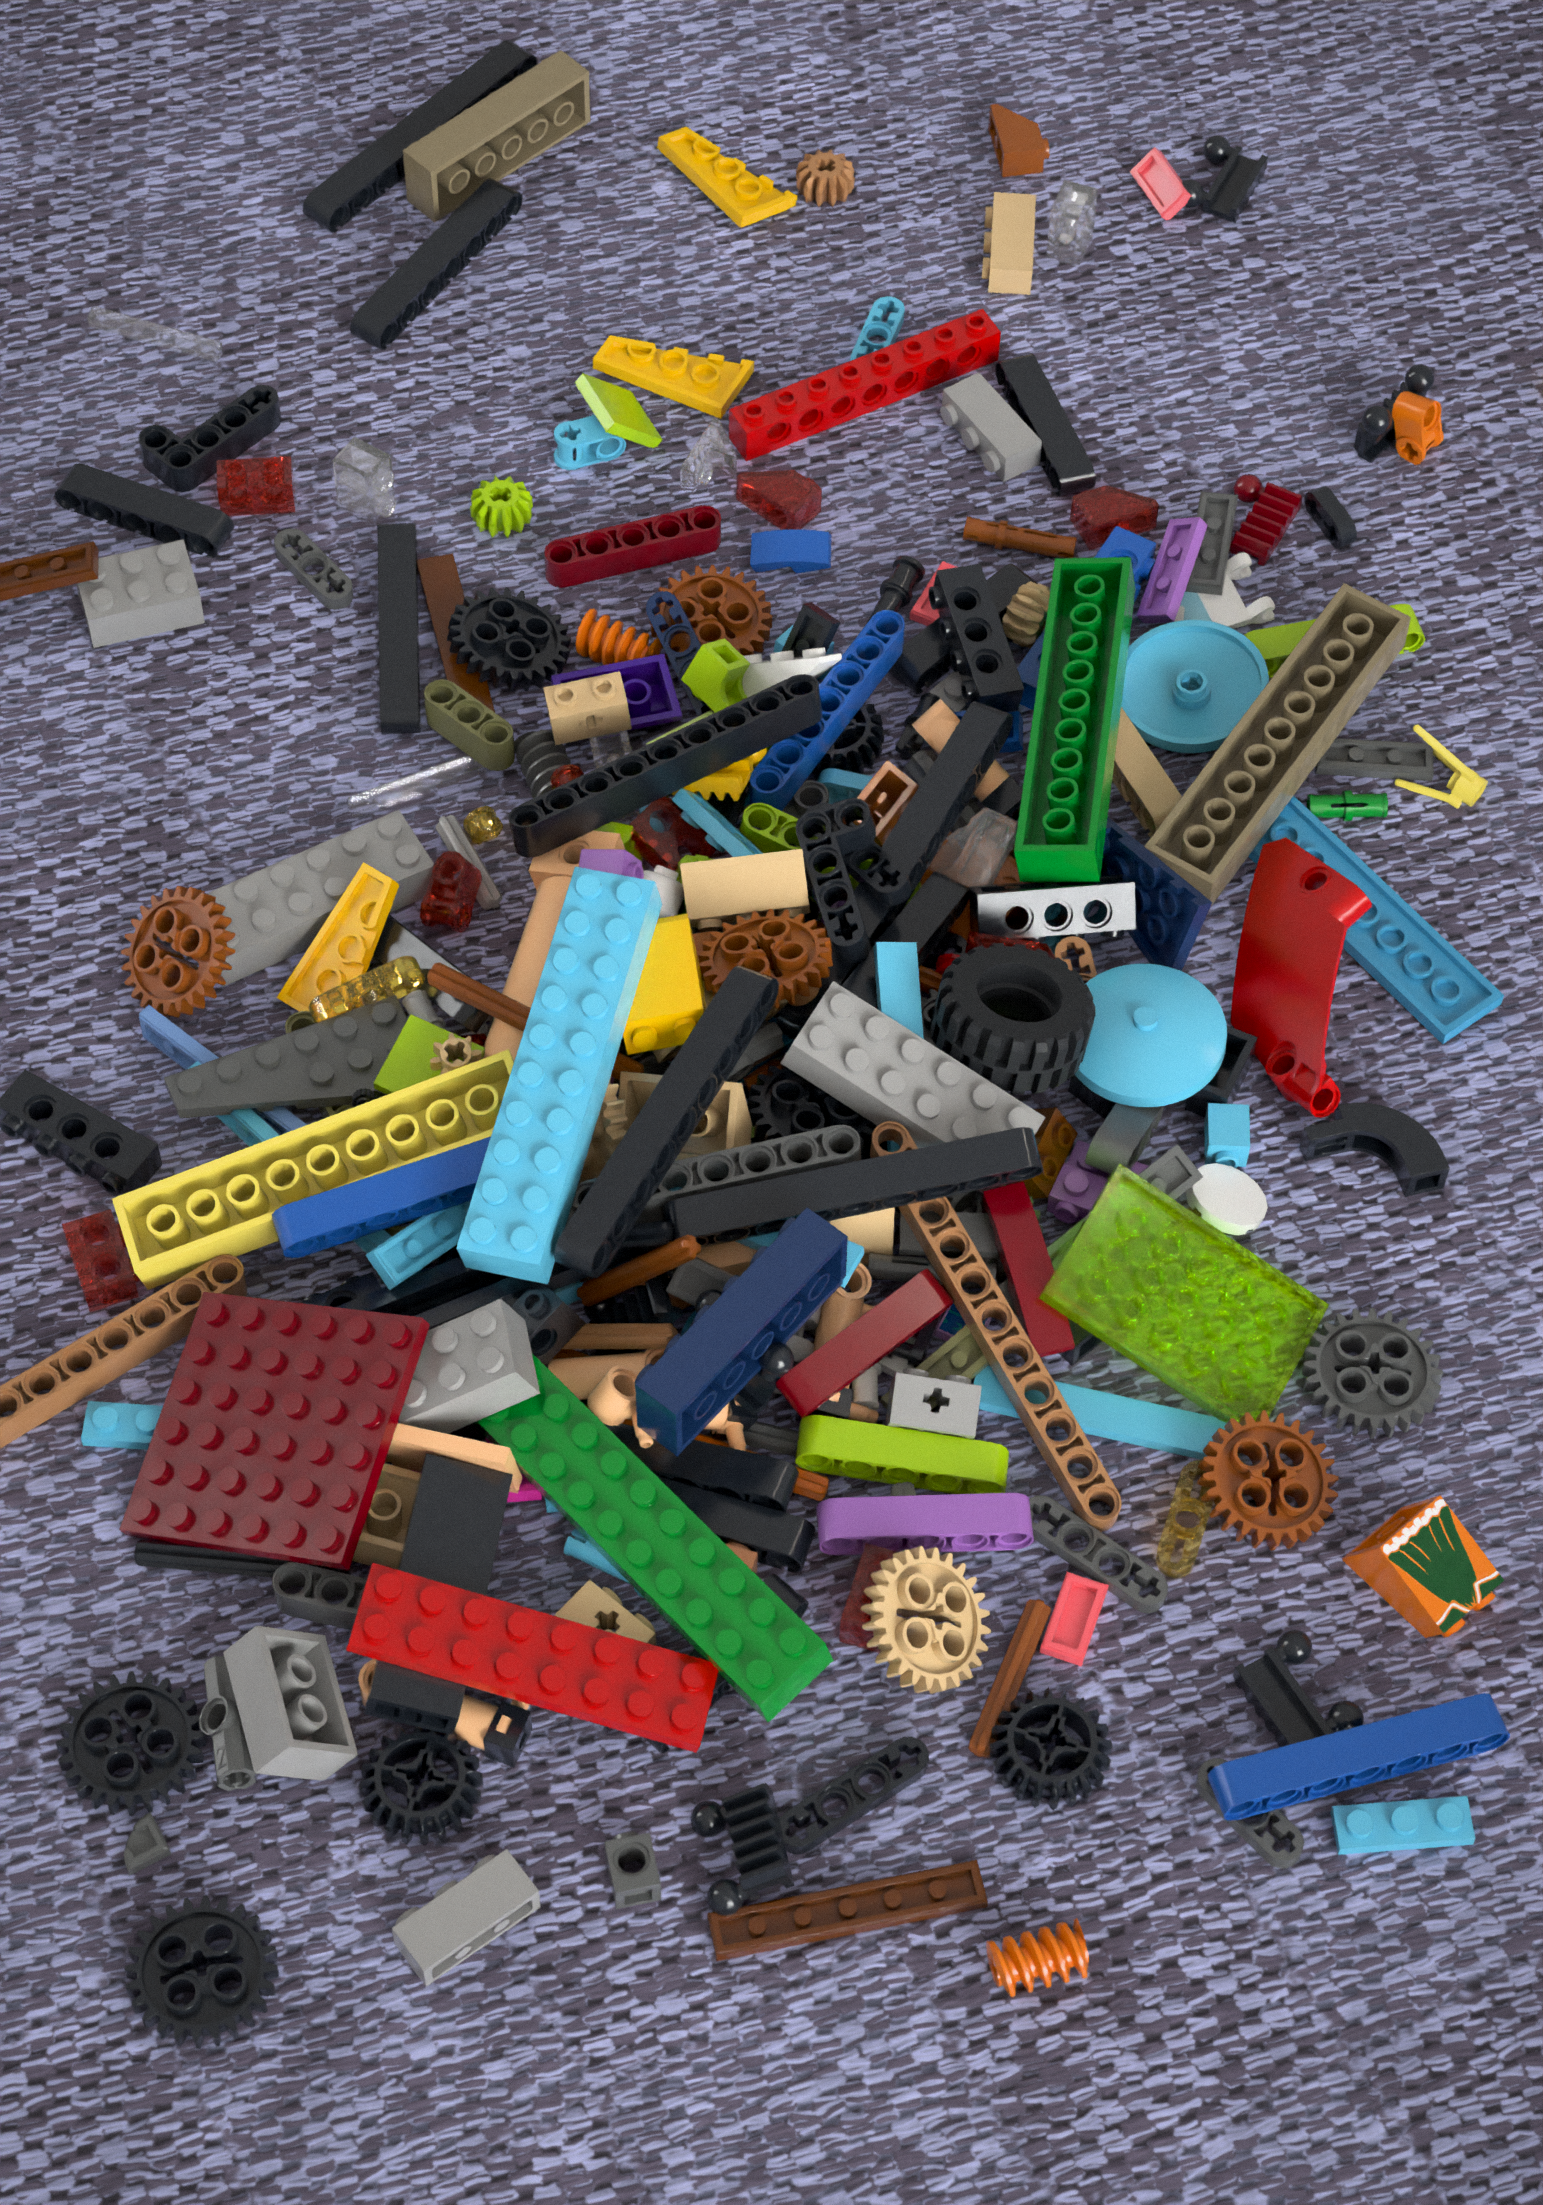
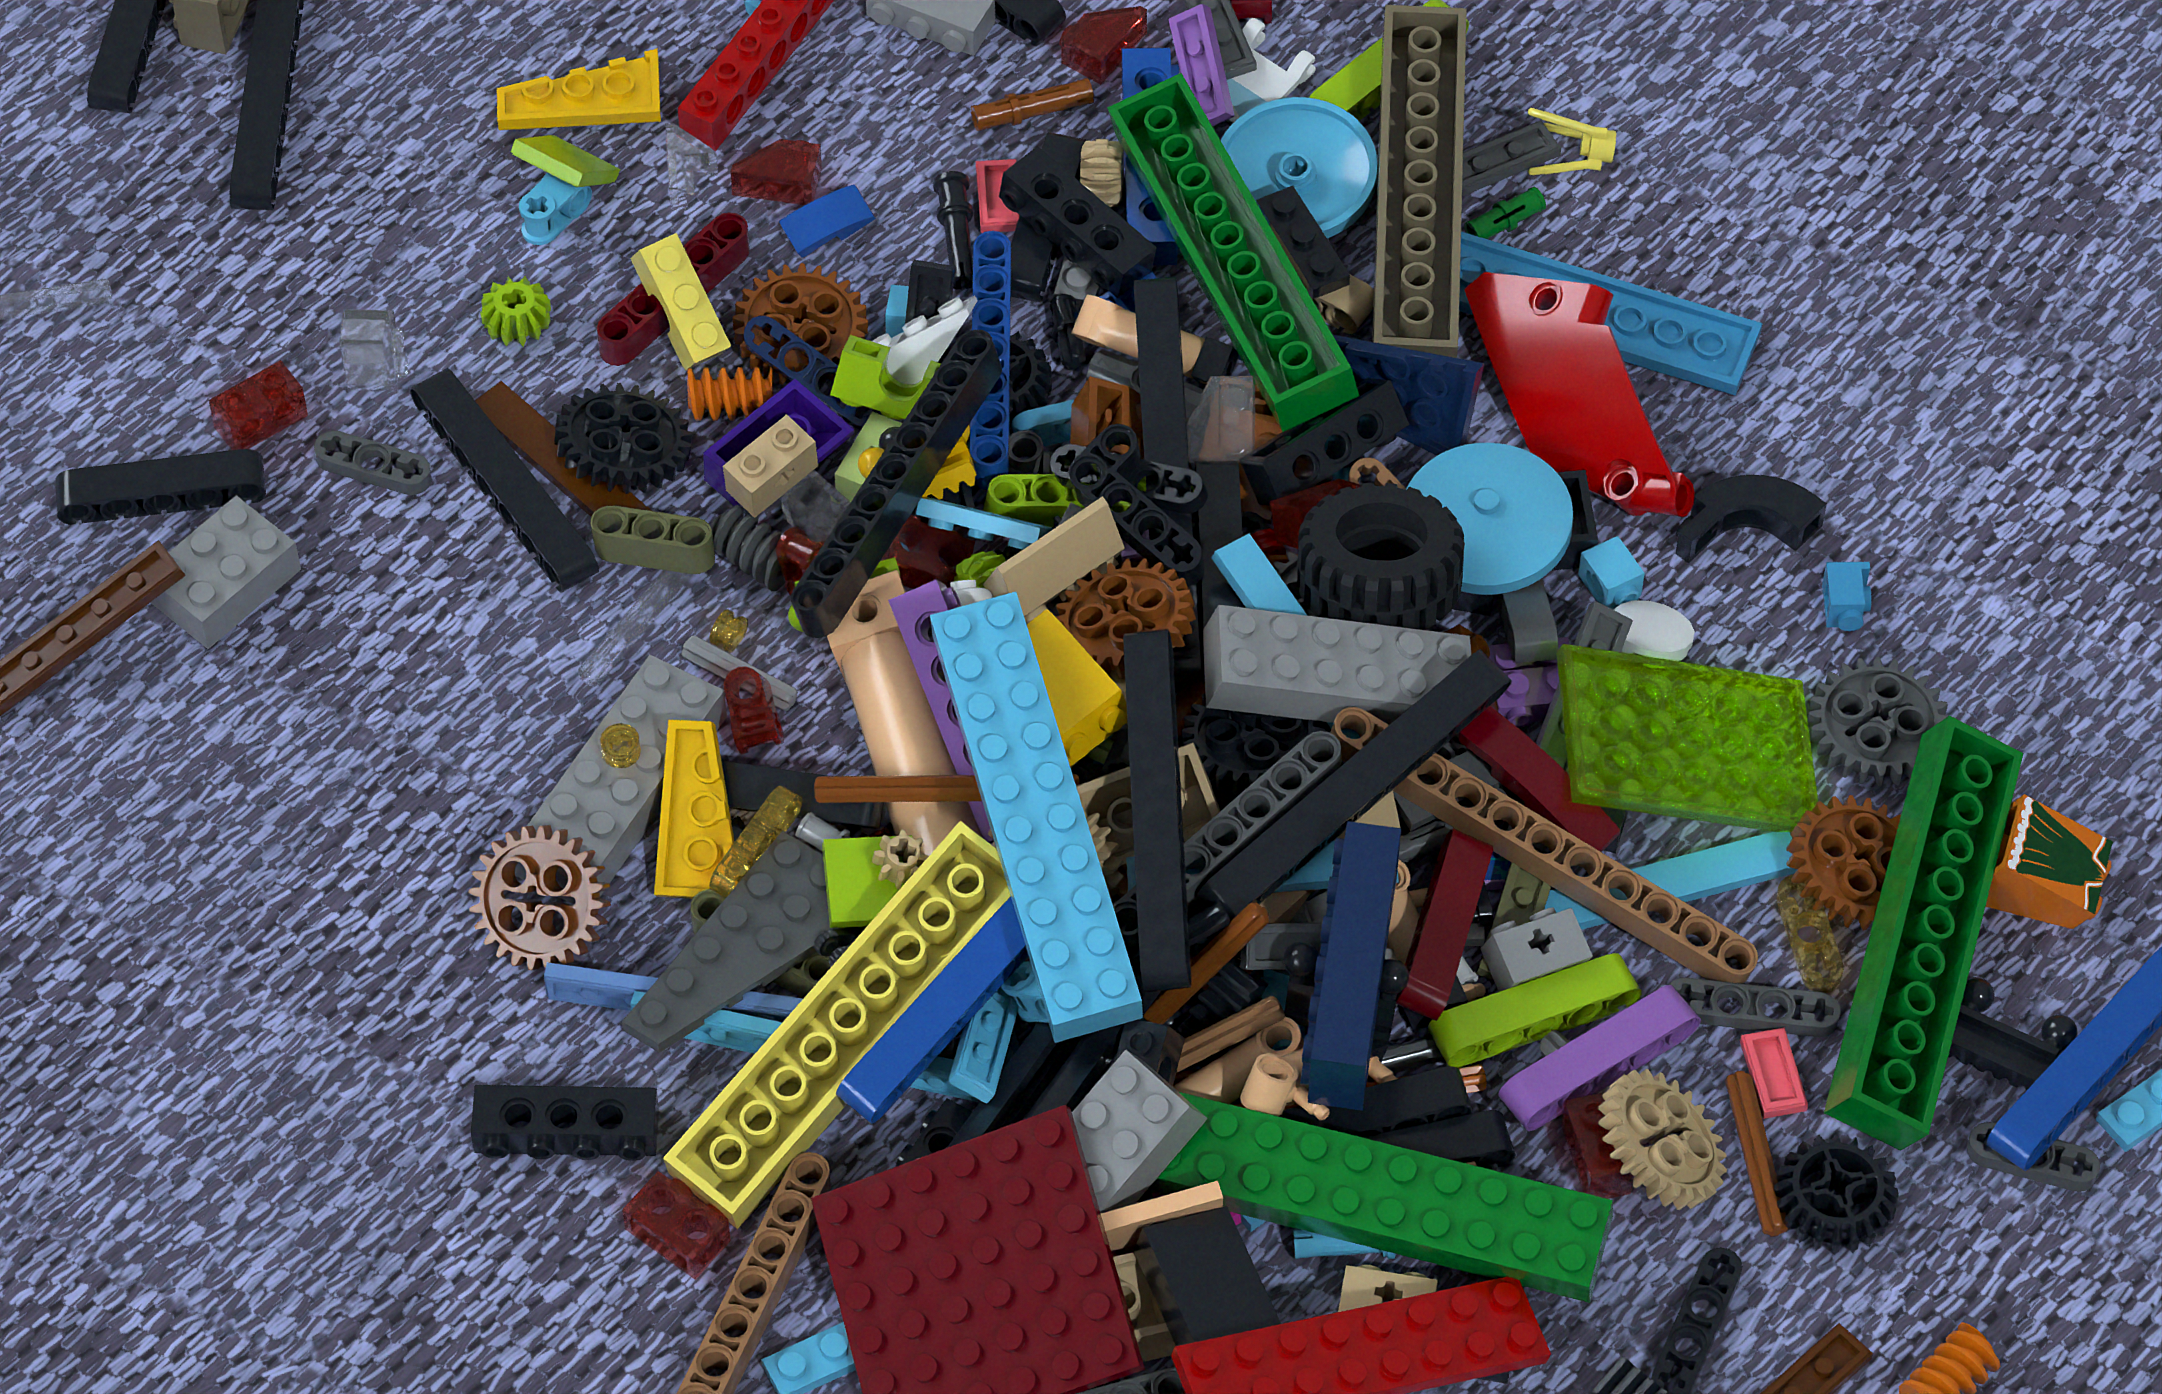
camera: 30 degrees left, 0 degrees up
(224, 436) = (177, 397): black beam -> none
(313, 874) = (614, 736): none -> clear yellow bush
(621, 554) = (692, 320): none -> light yellow arch
(1152, 743) = (1304, 242): none -> black plate
(1275, 1569) = (1924, 934): none -> green brick
(1419, 1253) = (1846, 594): none -> dark azure brick

